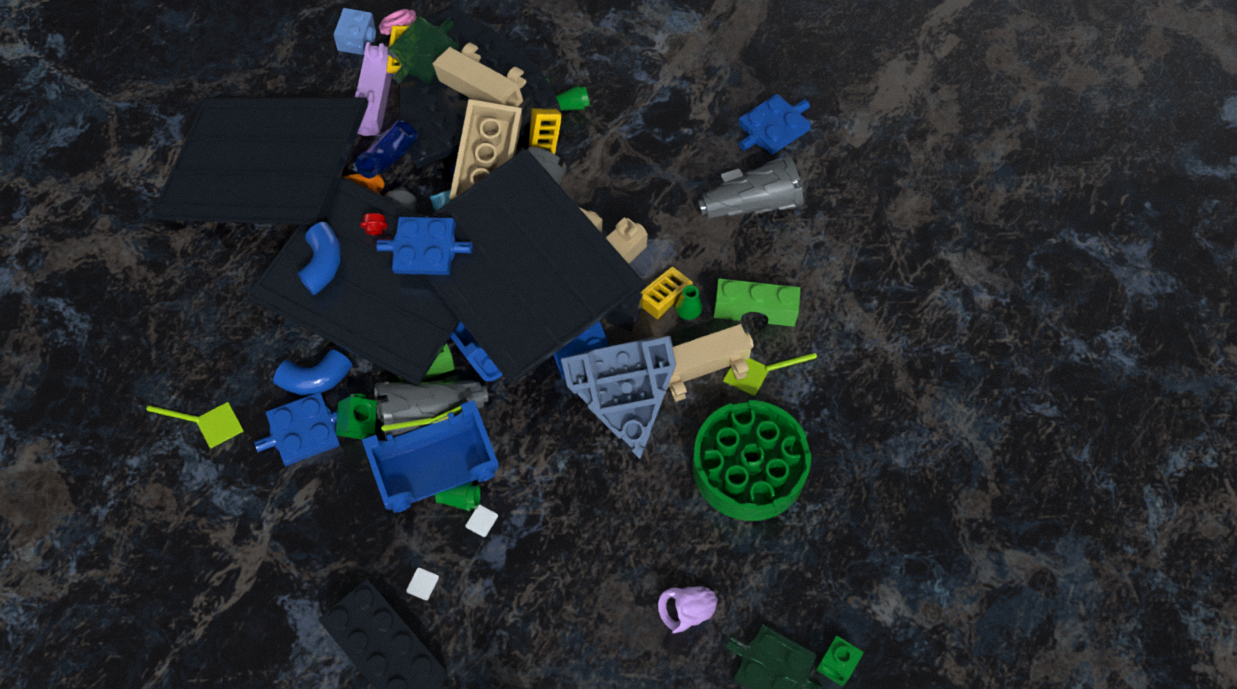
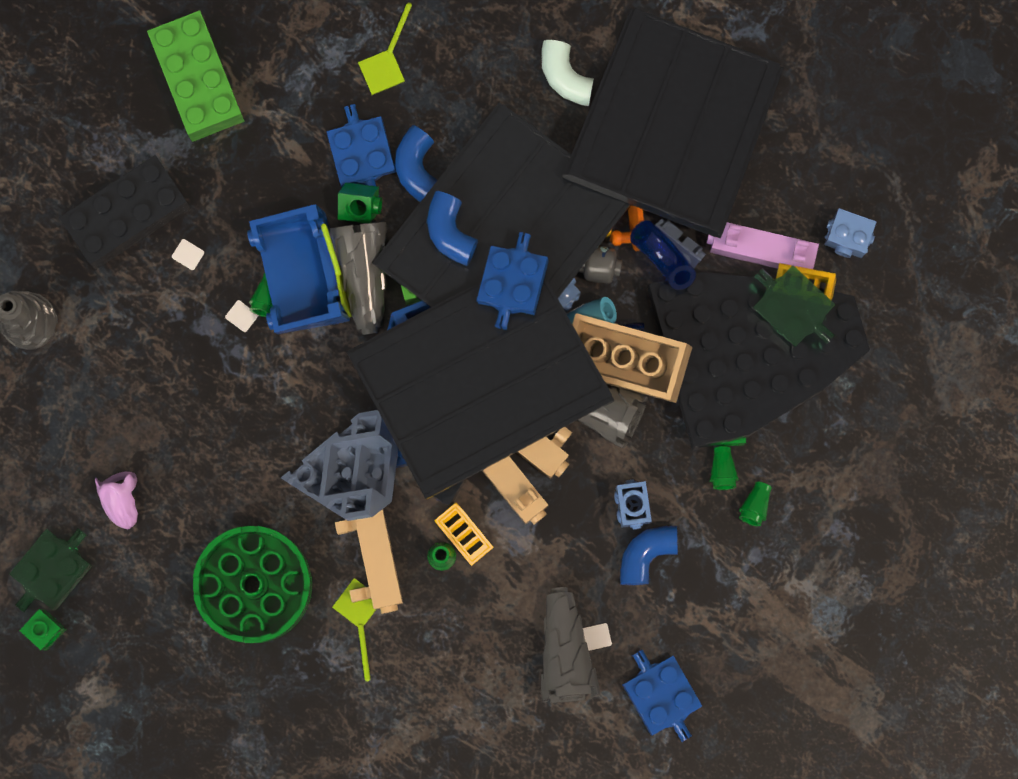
camera: 100 degrees right, 20 degrees up
(220, 261) = (562, 76): none -> light aqua cylinder
(227, 598) = (195, 76): none -> bright green brick
(324, 259) = (520, 180): blue cylinder -> none
(373, 224) = (557, 232): red plate -> none
(381, 316) = (444, 232): none -> blue cylinder
(399, 18) = (858, 273): bright pink gear -> none
(477, 81) = (732, 360): tan brick -> none
(539, 115) = (669, 428): yellow slope -> none
(601, 73) = (756, 505): none -> green cone
(615, 156) = (637, 492): none -> medium blue head
(654, 149) = (643, 550): none -> blue cylinder
(740, 297) = (431, 627): bright green arch -> none

